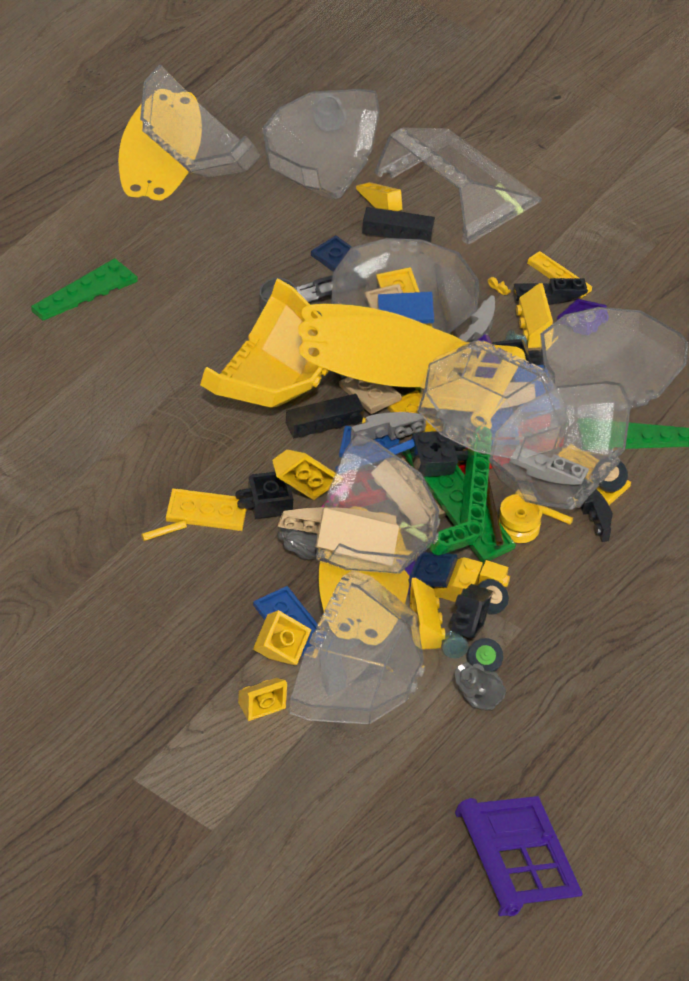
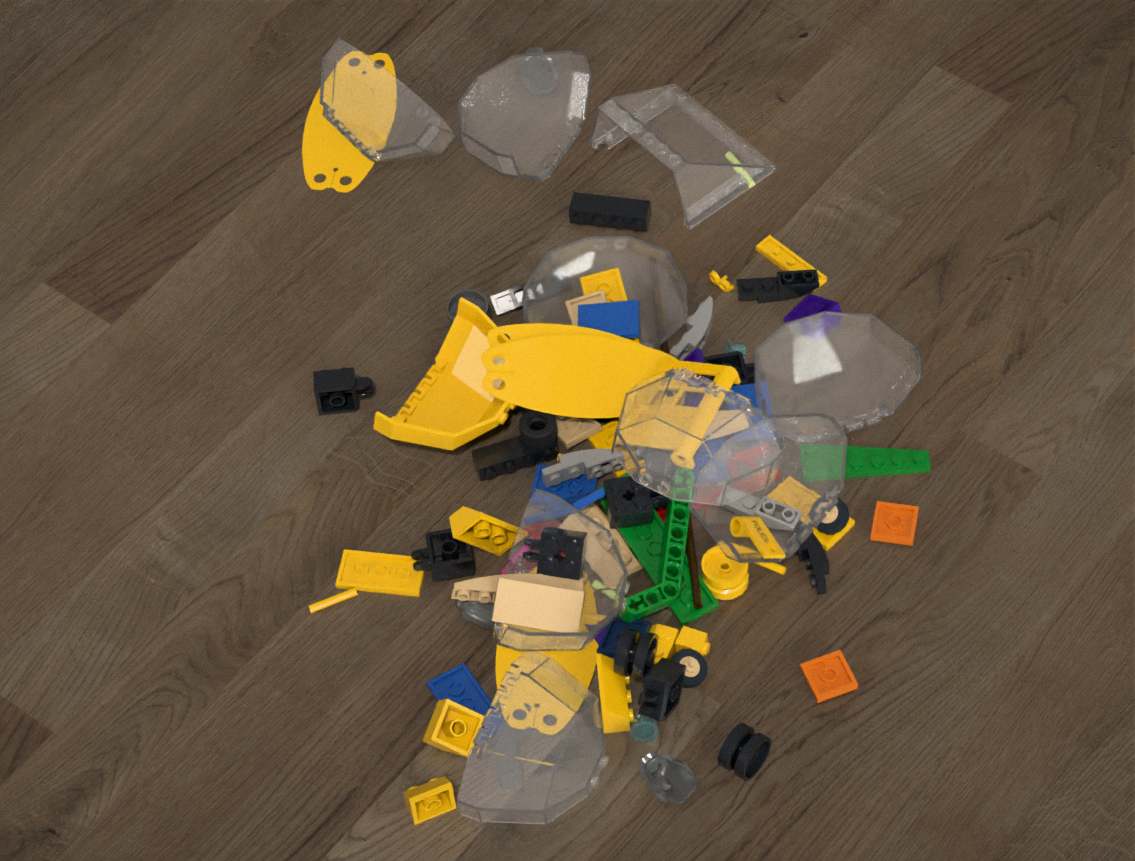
camera: 10 degrees right, 5 degrees up
(97, 282) = (273, 299): green wing -> none
(164, 356) = (340, 390): none -> black hinge
(331, 252) = (534, 247): dark blue tile -> none
(339, 396) = (540, 438): none -> black tyre
(369, 482) = (548, 558): none -> black hinge
(381, 196) = (593, 176): yellow slope -> none
(445, 577) = (635, 653): none -> black wheel
(486, 653) = (676, 740): black wheel -> none
(534, 315) = (756, 317): yellow slope -> none
(547, 481) = (759, 534): none -> yellow door
(548, 665) = (744, 751): none -> black wheel
(617, 607) = (828, 676): none -> orange plate
(666, 485) = (894, 523): none -> orange plate

